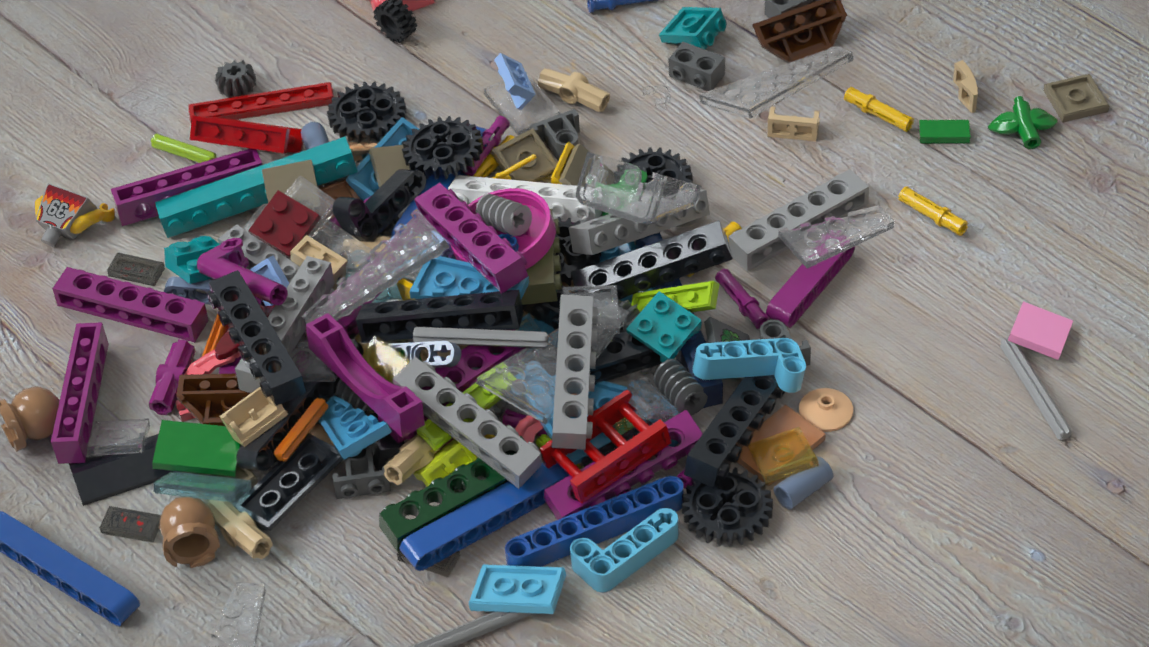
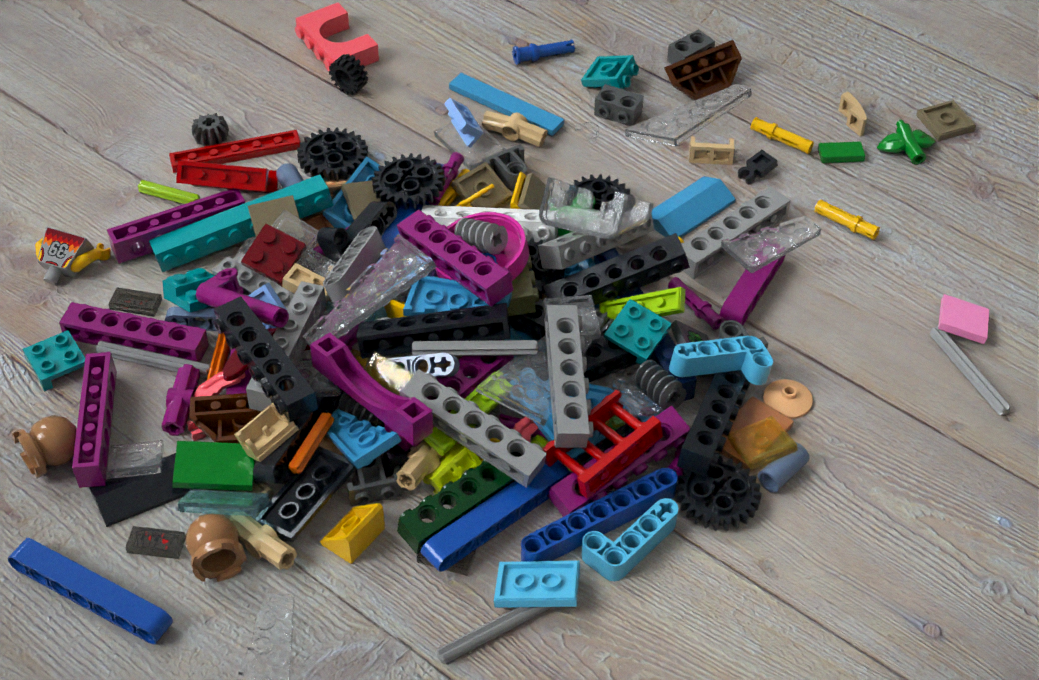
camera: 10 degrees left, 0 degrees up
(44, 326) = (54, 358): none -> teal piece
(144, 330) = (150, 358): none -> light grey axle
(337, 525) = (355, 531): none -> yellow slope
(373, 230) = (358, 256): none -> light grey beam
(569, 59) = (505, 102): none -> dark azure tile
(758, 189) = (691, 207): none -> dark azure slope
(843, 143) = (759, 165): none -> black plate

